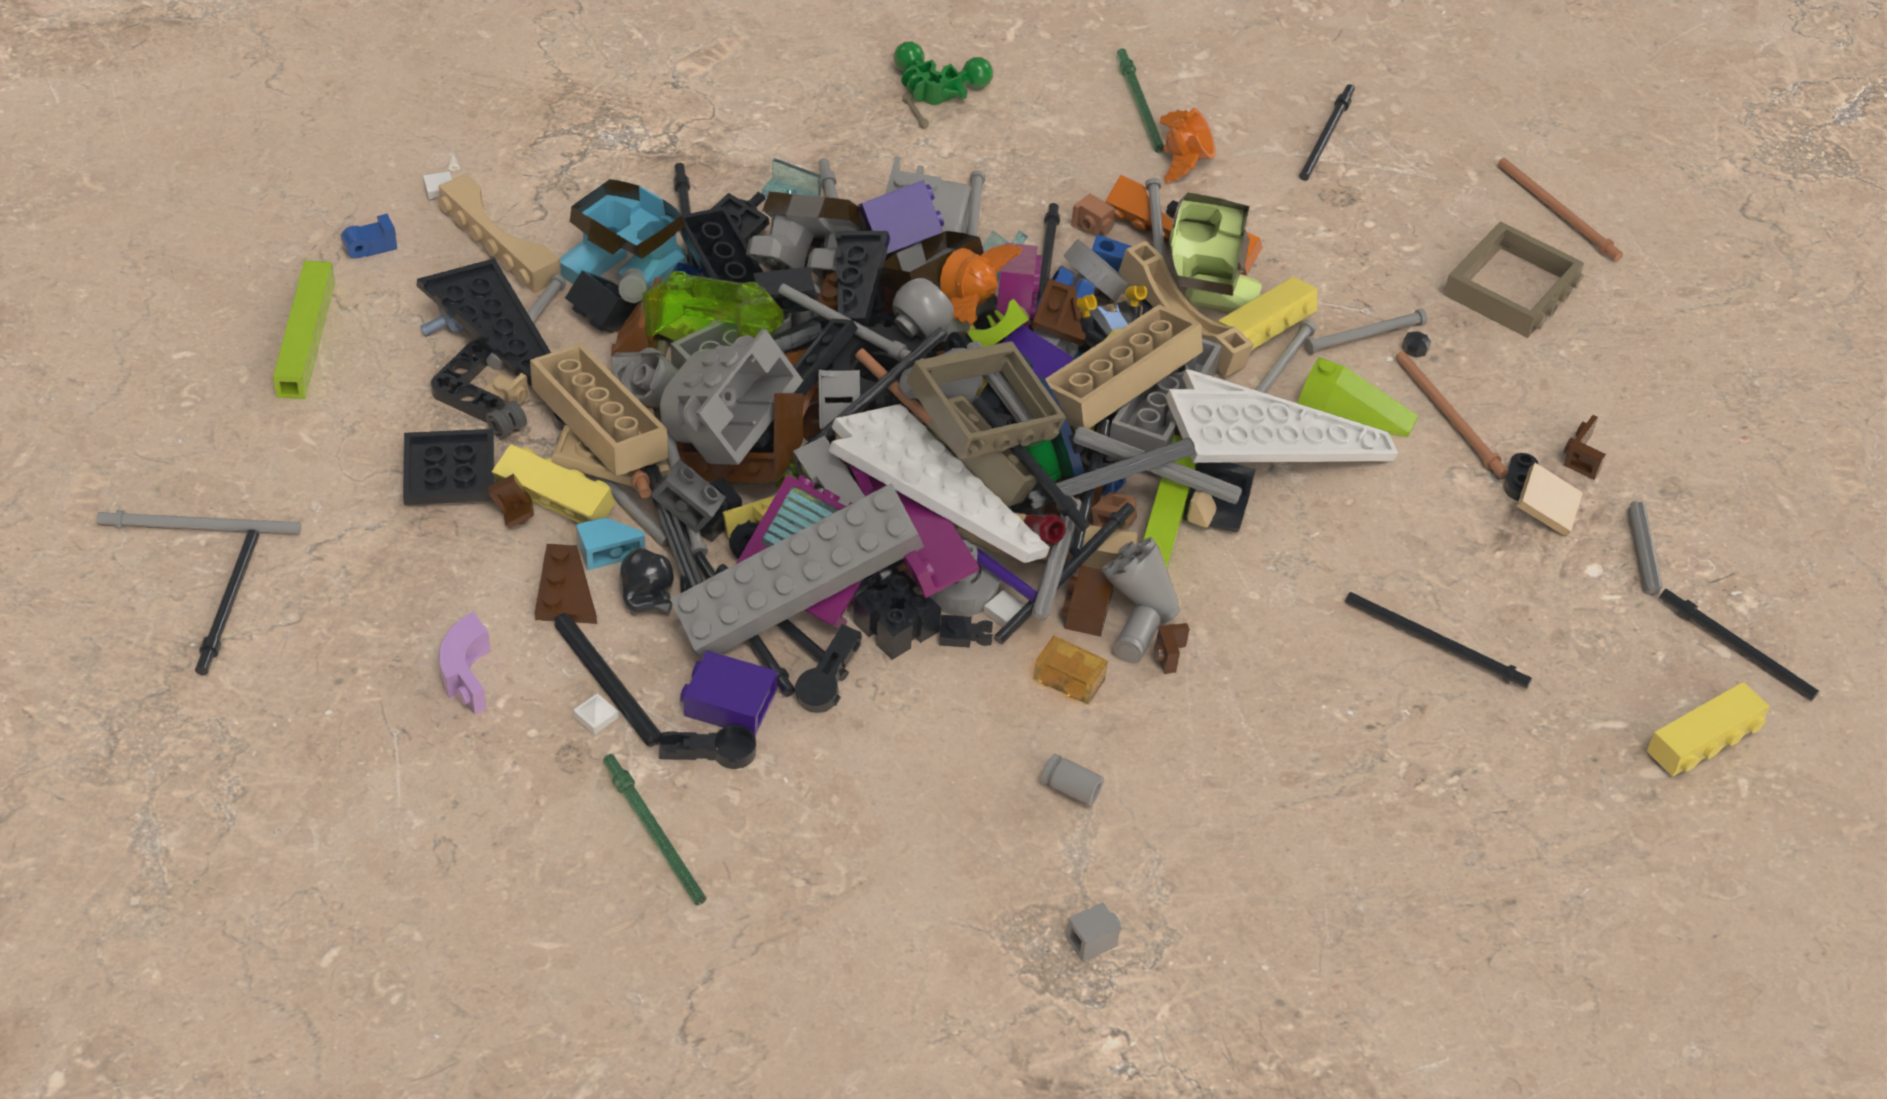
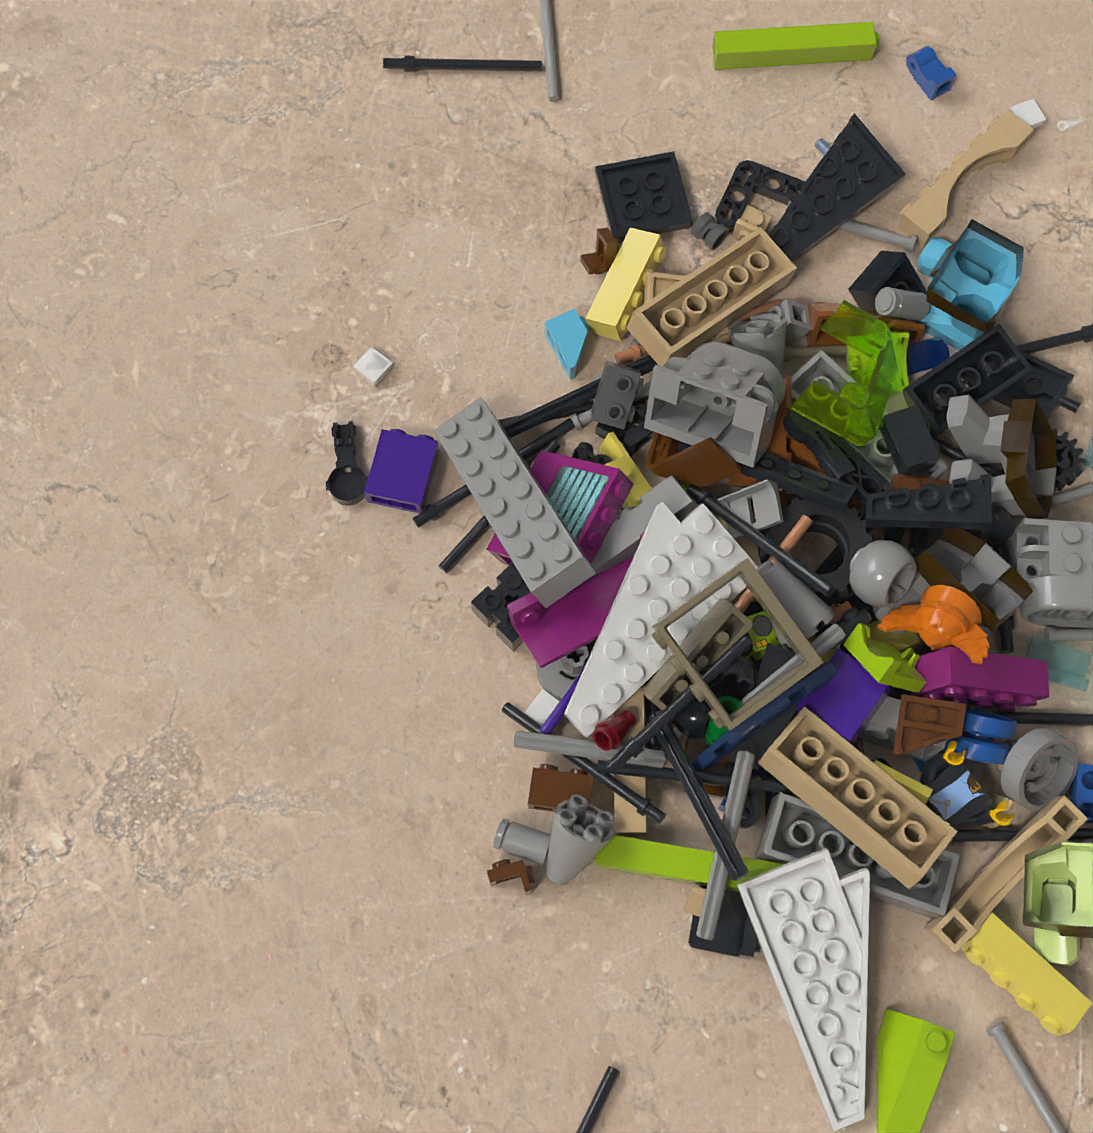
camera: 90 degrees right, 25 degrees up
(459, 650) = (412, 245): lavender arch -> none
(564, 586) = (516, 315): reddish brown wing -> none
(608, 680) = (412, 369): black axle -> none
(625, 784) = (299, 400): clear green bar -> none
(646, 581) = (522, 380): black piece -> none
(818, 687) = (414, 548): black piece -> none
(895, 349) = (828, 555): light grey bar -> none
(904, 214) = (1030, 538): brick -> none
(959, 631) = (511, 669): black plate -> none
(1070, 670) = (466, 776): clear yellow brick -> none
(1072, 779) = (333, 786): light grey piece -> none
(1093, 931) = (160, 815): light grey brick -> none
(1112, 503) = (681, 812): nougat brick -> none
(1306, 330) = (1023, 1023): light grey bar -> none

